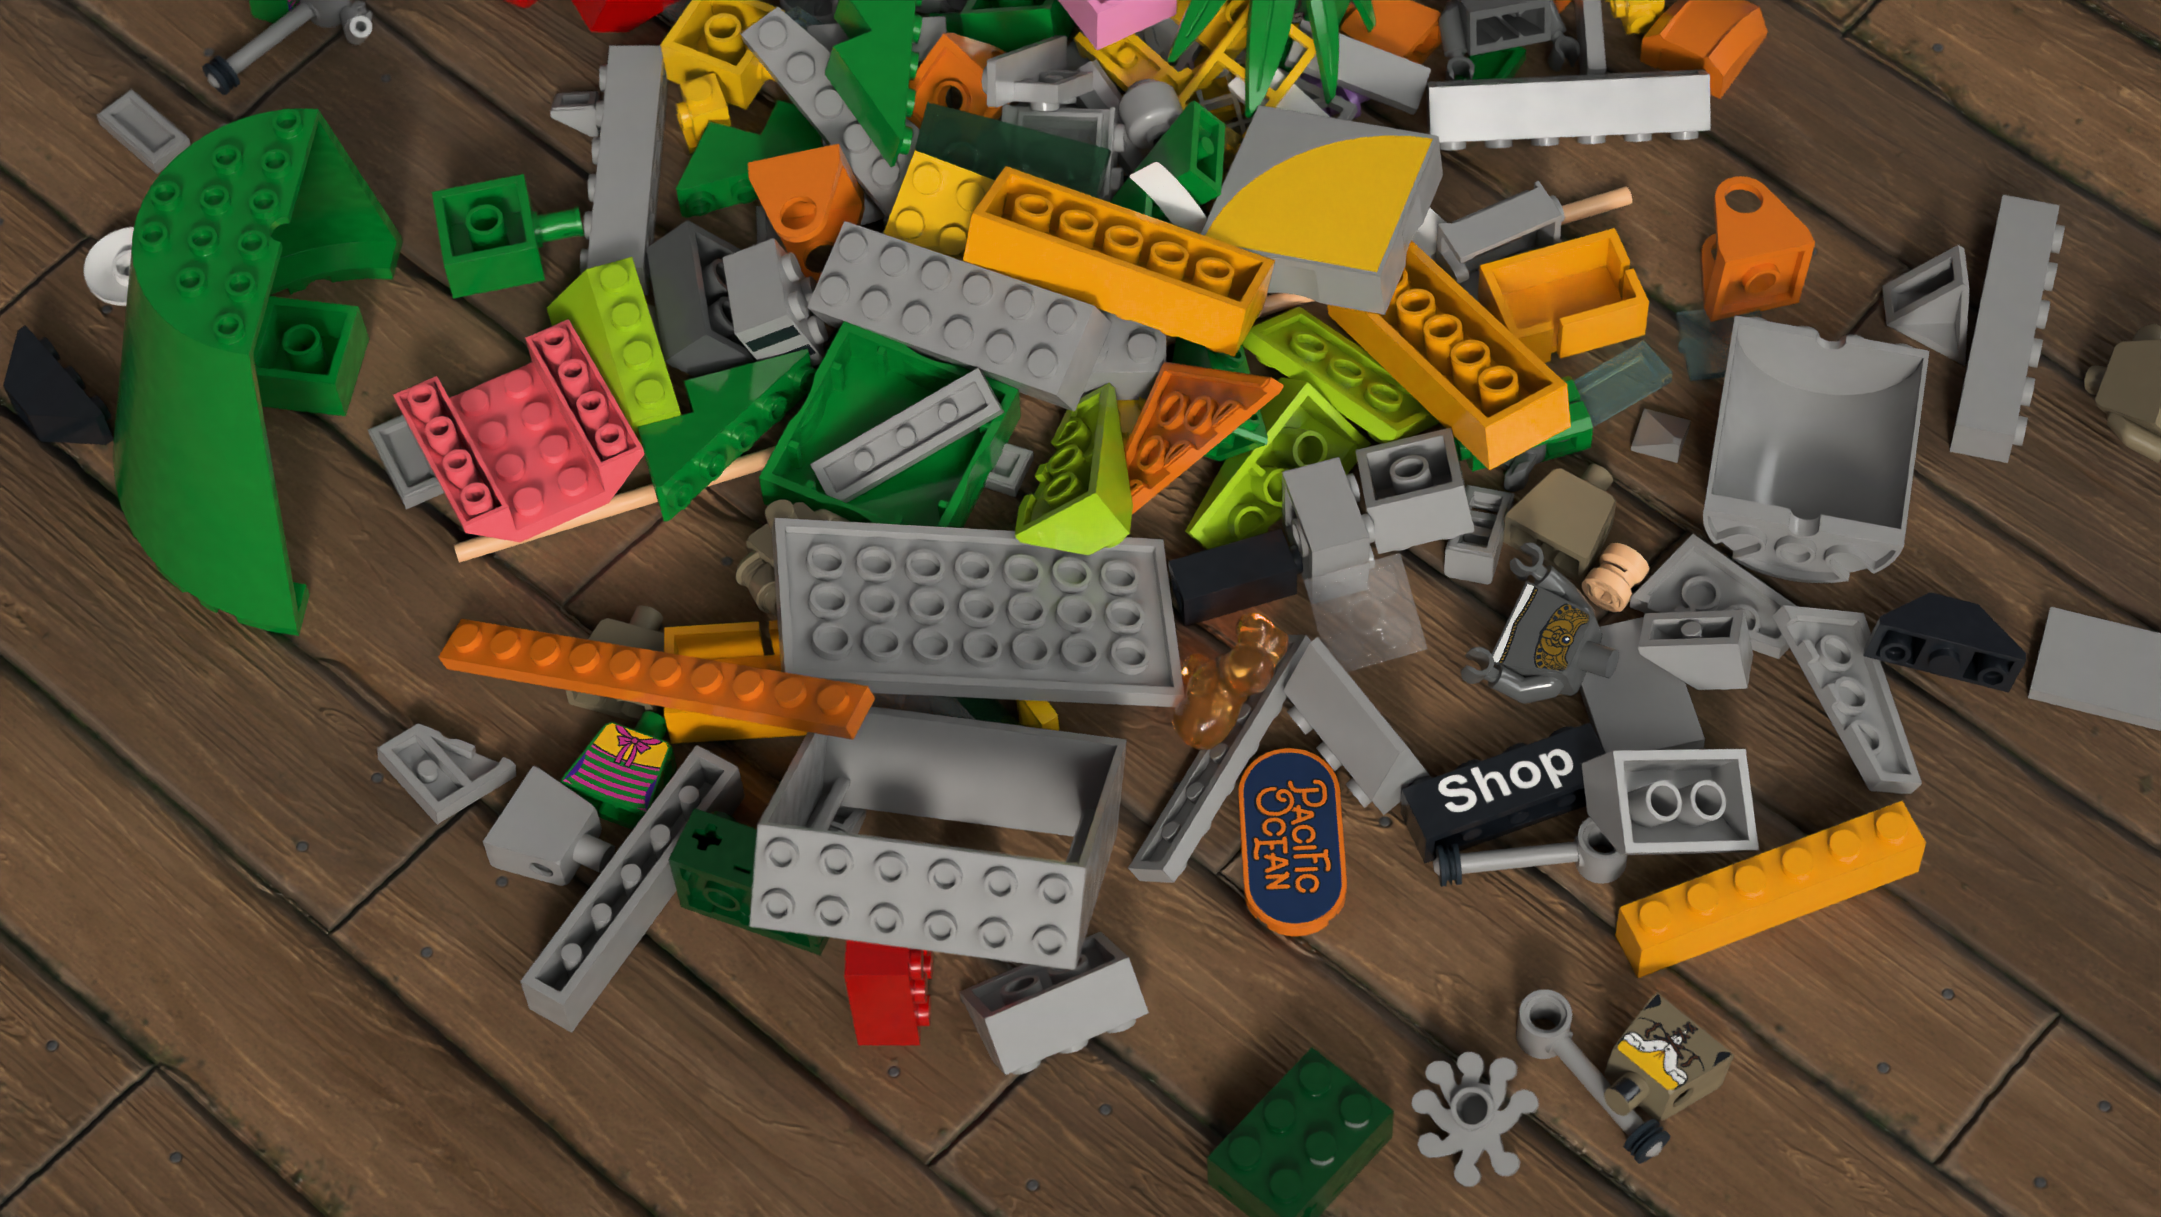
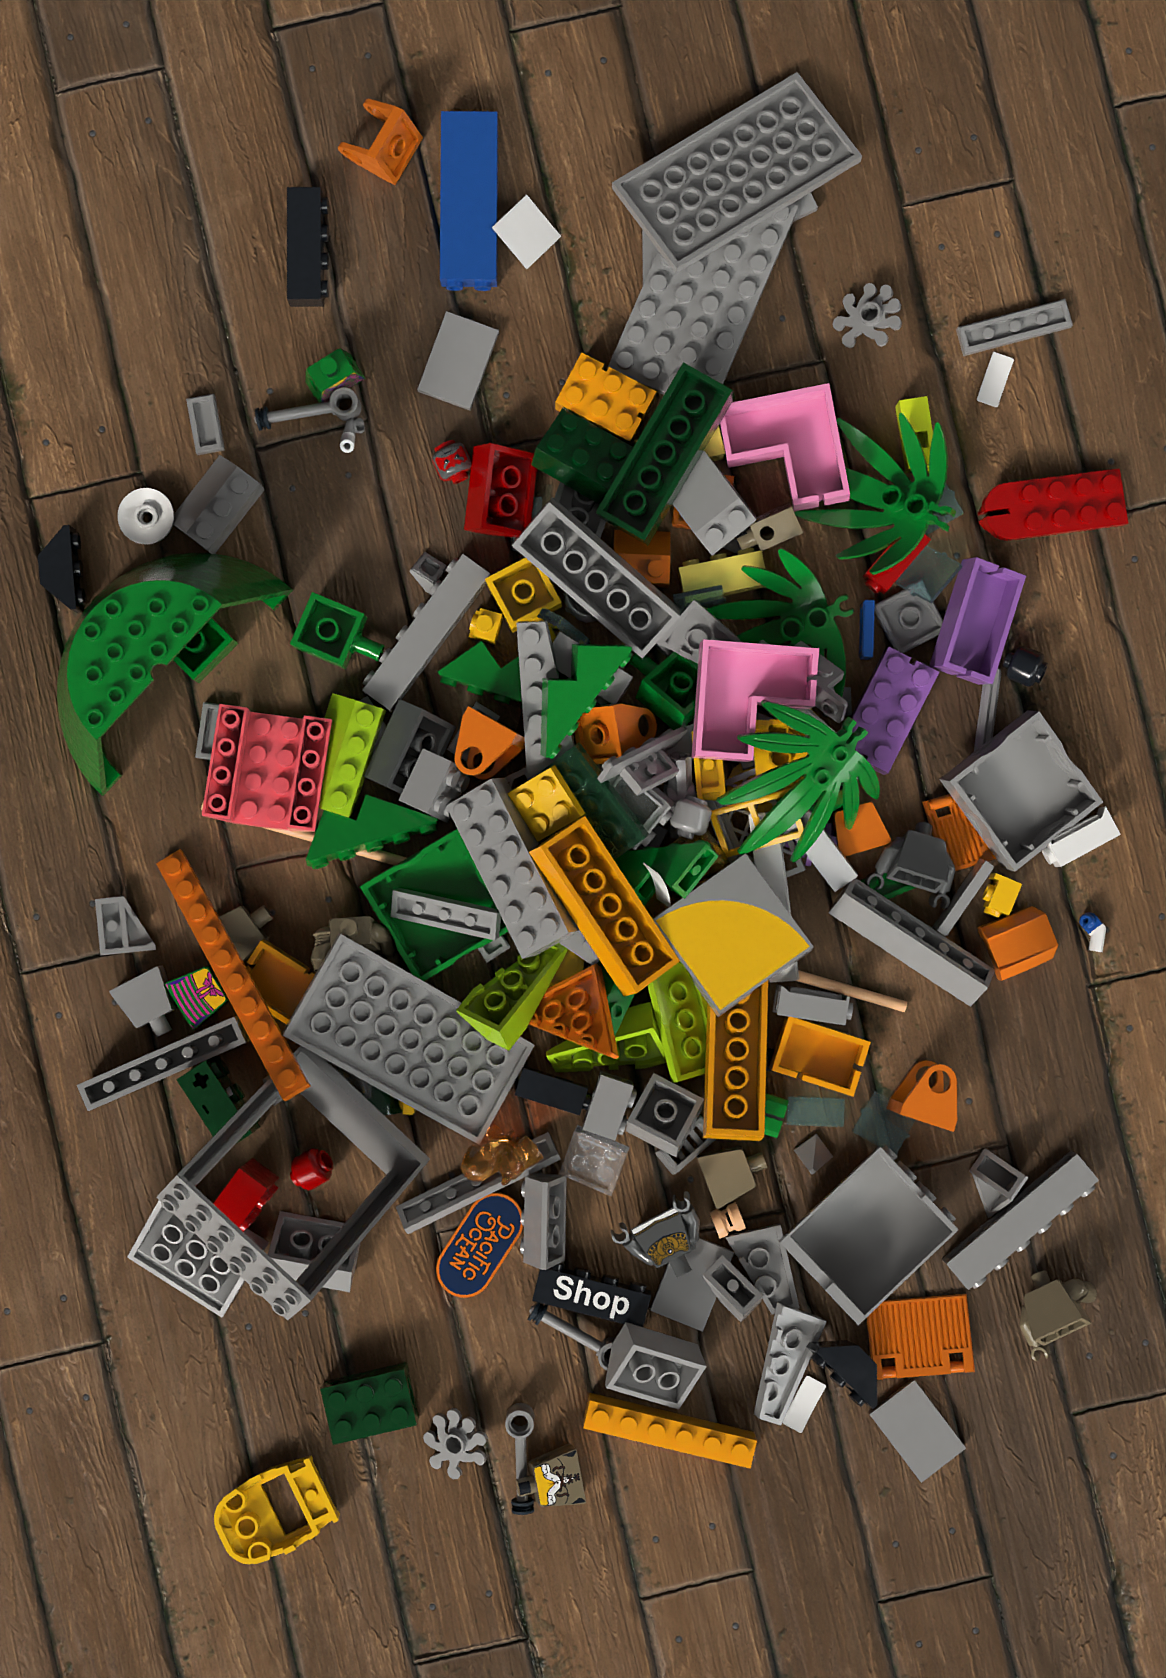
camera: 30 degrees right, 30 degrees up
(871, 1118) = (185, 1261): none -> light grey slope
(1929, 743) = (803, 1404): none -> white sticker
(2010, 549) = (921, 1336): none -> orange window

